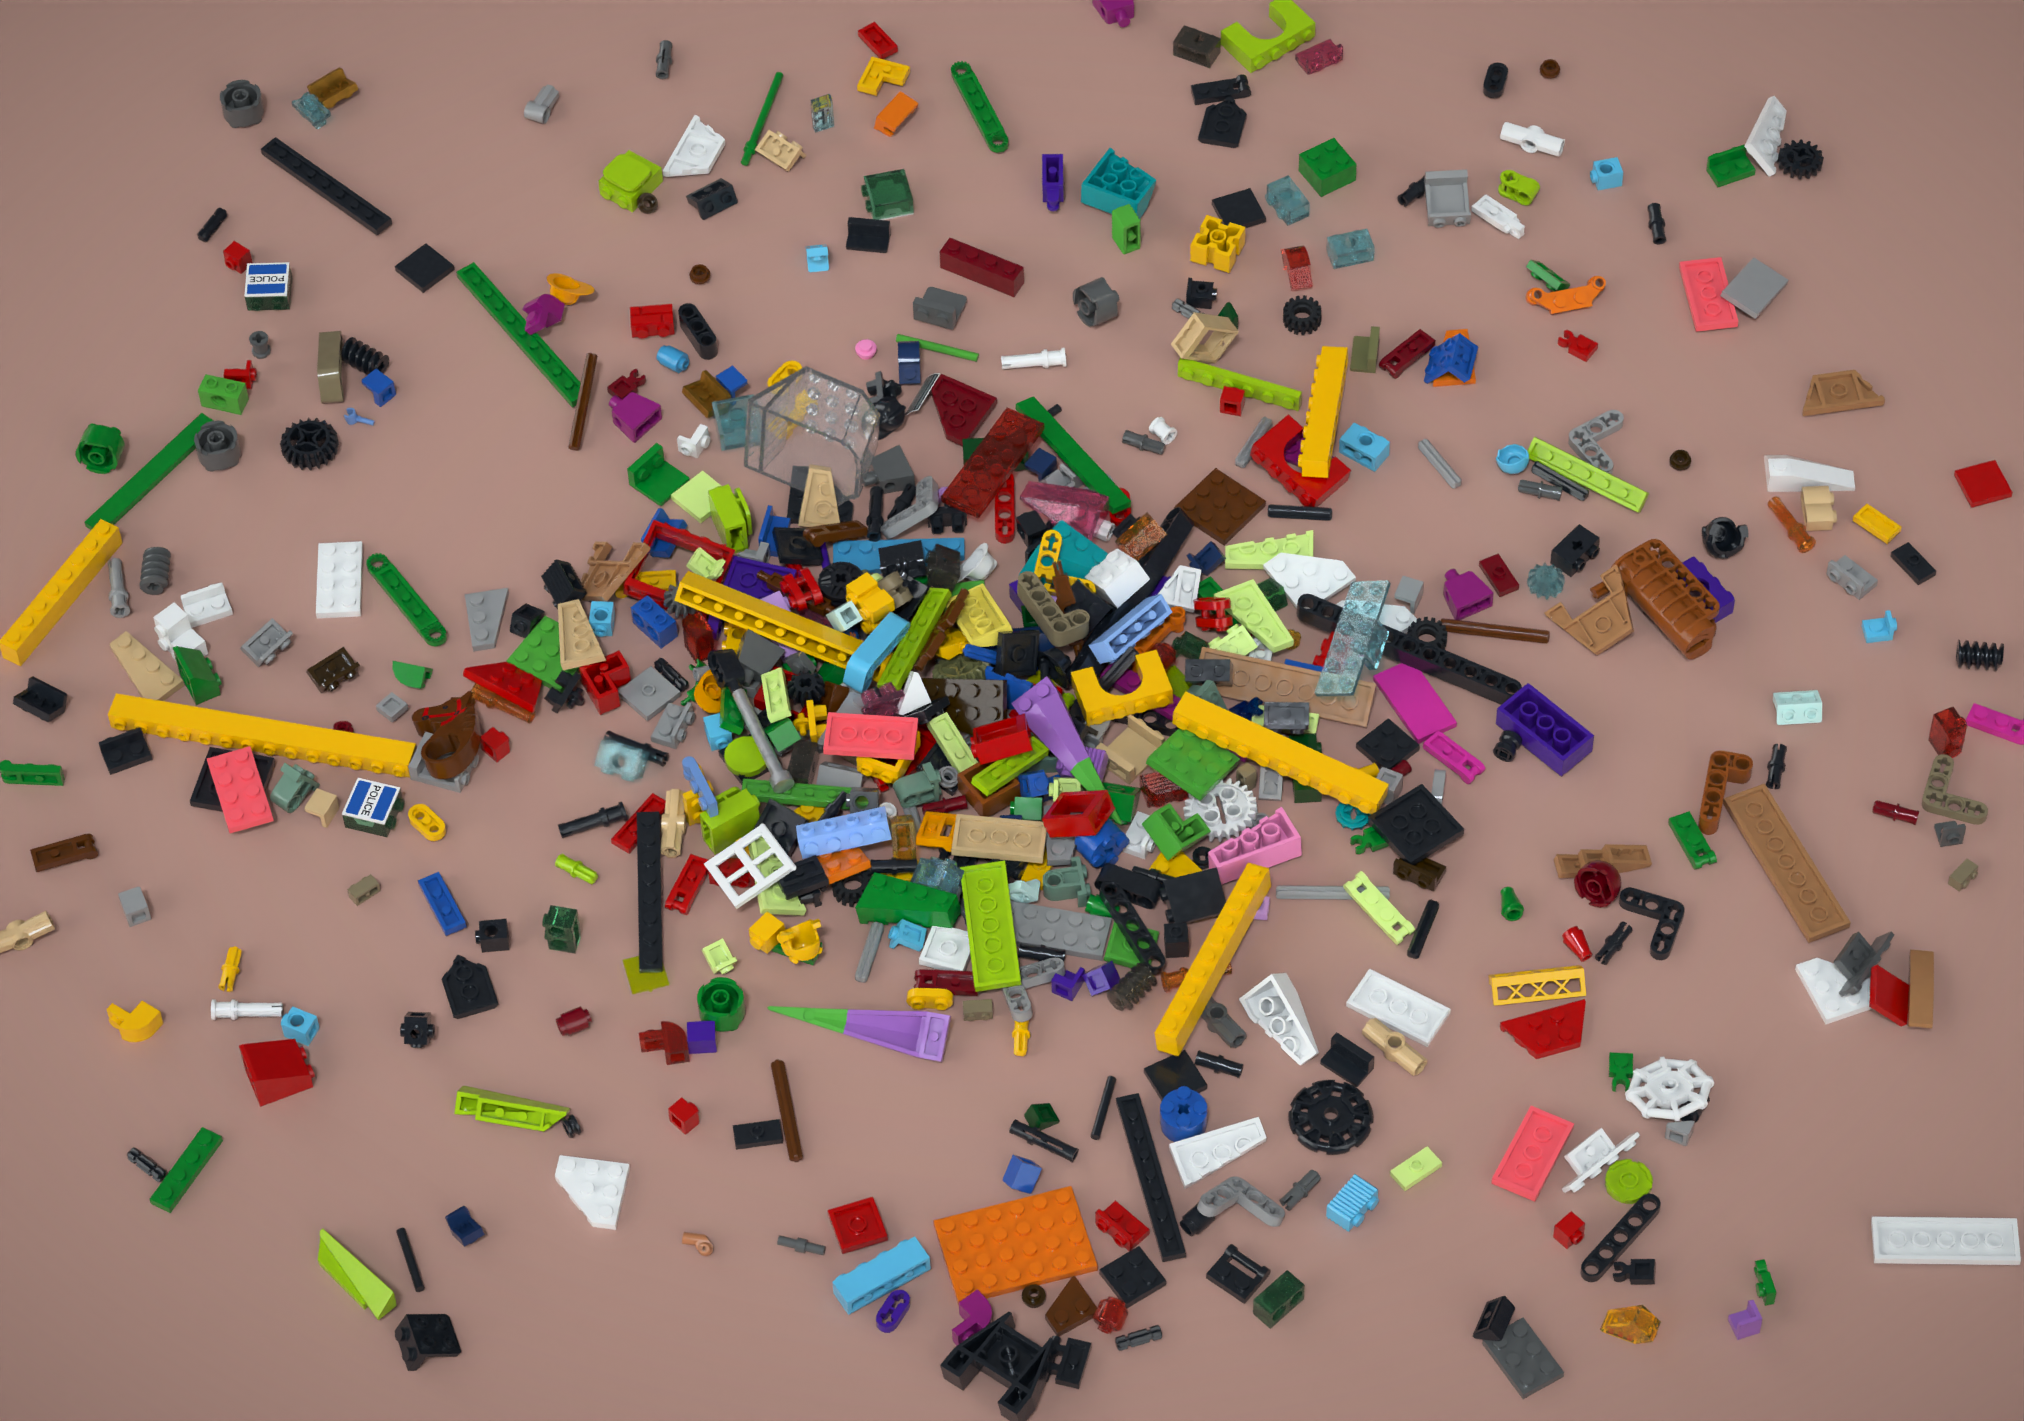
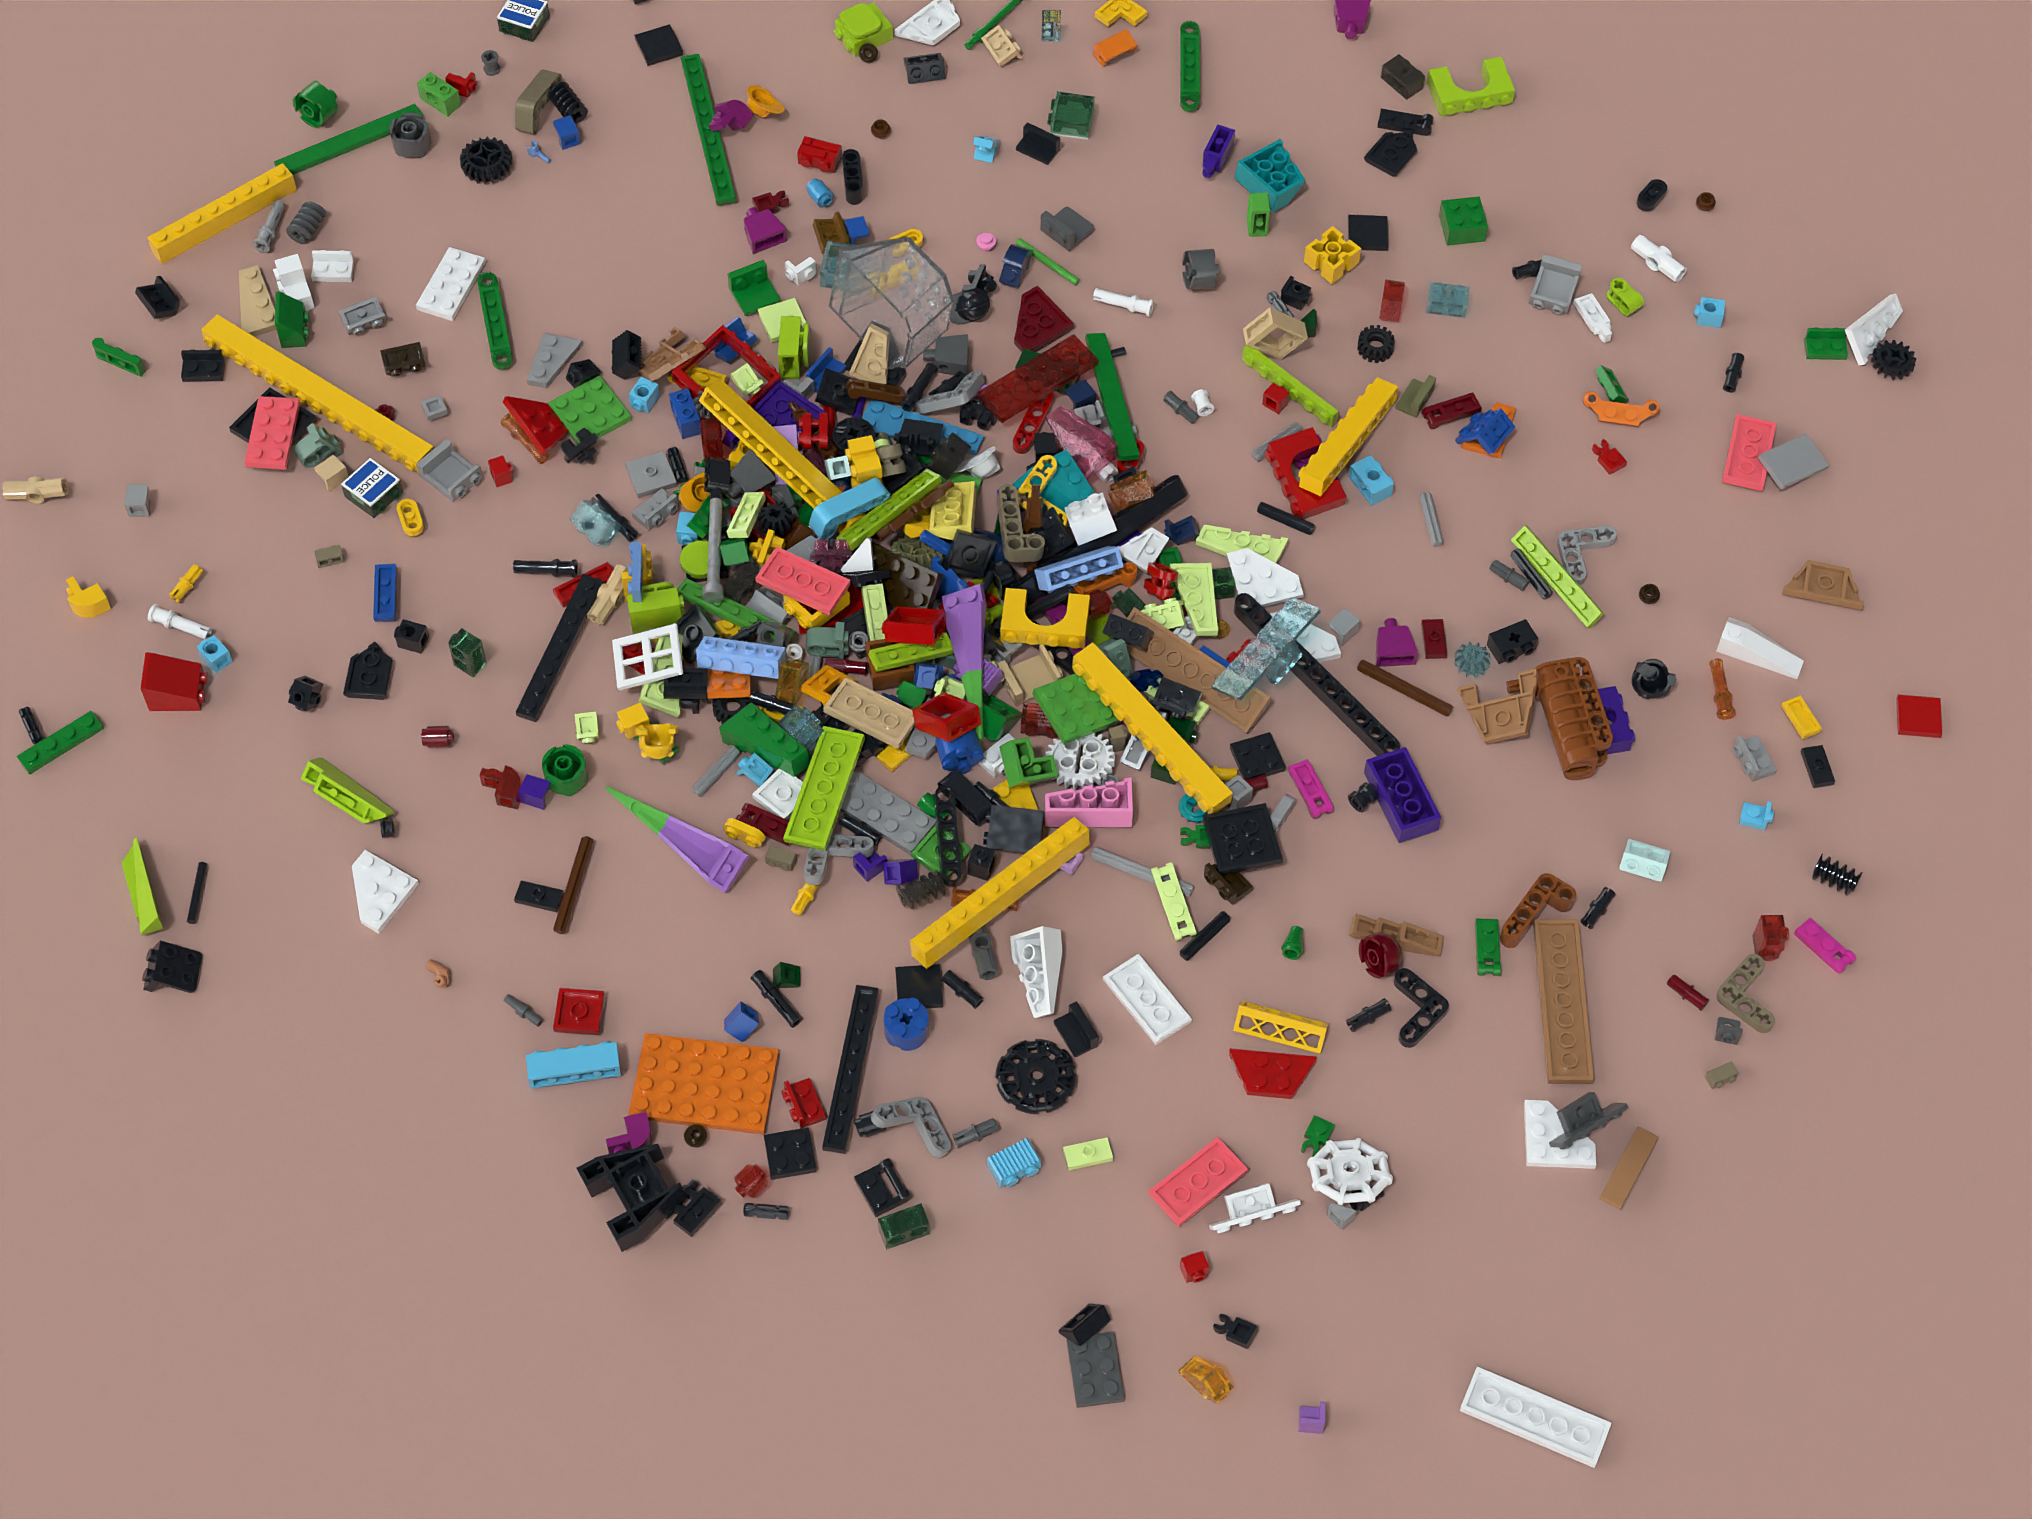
camera: 20 degrees right, 5 degrees up
(64, 852) = (108, 433): reddish brown plate -> none
(411, 674) = (465, 386): green brick -> none
(453, 728) = (468, 449): reddish brown animal -> none
(463, 1226) = (253, 881): dark blue bracket -> none
(576, 637) = (610, 404): tan wing -> none
(576, 869) = (509, 603): lime axle -> none
(582, 401) = (724, 203): reddish brown axle -> none
(603, 680) = (617, 446): red brick -> none
(643, 981) = (516, 724): clear neon green piece -> none
(684, 1115) = (485, 855): red plate -> none
(687, 884) = (593, 654): red plate -> none
(897, 1313) = (569, 1100): dark purple beam -> none
(922, 393) = (1013, 297): sticker -> none
(981, 267) = (1119, 205): dark red brick -> none
(1024, 891) = (872, 768): light aqua bracket -> none
(1068, 883) = (916, 774): sand green pin -> none
(1070, 1308) = (721, 1160): reddish brown wing -> none
(1103, 1107) = (842, 990): black bar -> none
(1201, 851) = (1040, 791): black bush -> none
(1212, 1150) = (914, 1066): white wing -> none
(1221, 506) = (1219, 488): reddish brown plate -> none
(1287, 200) = (1413, 238): clear light blue brick -> none
(1319, 56) = (1506, 122): clear pink bracket -> none
(1403, 1054) = (1127, 1044): tan piece -> none
(1414, 701) = (1301, 725): dark pink tile -> none
(1431, 628) = (1347, 663): black tyre -> none
(1512, 459) = (1497, 538): medium azure hair -> none
(1577, 943) = (1335, 1002): red cone -> none
(1618, 1248) = (1245, 1283): black beam -> none
(1628, 1181) = (1272, 1242): lime tile -> none
(1765, 1287) = (1345, 1393): green plate -> none
(1817, 508) = (1753, 682): tan brick -> none
(1889, 995) = (1594, 1163): red tile -> none

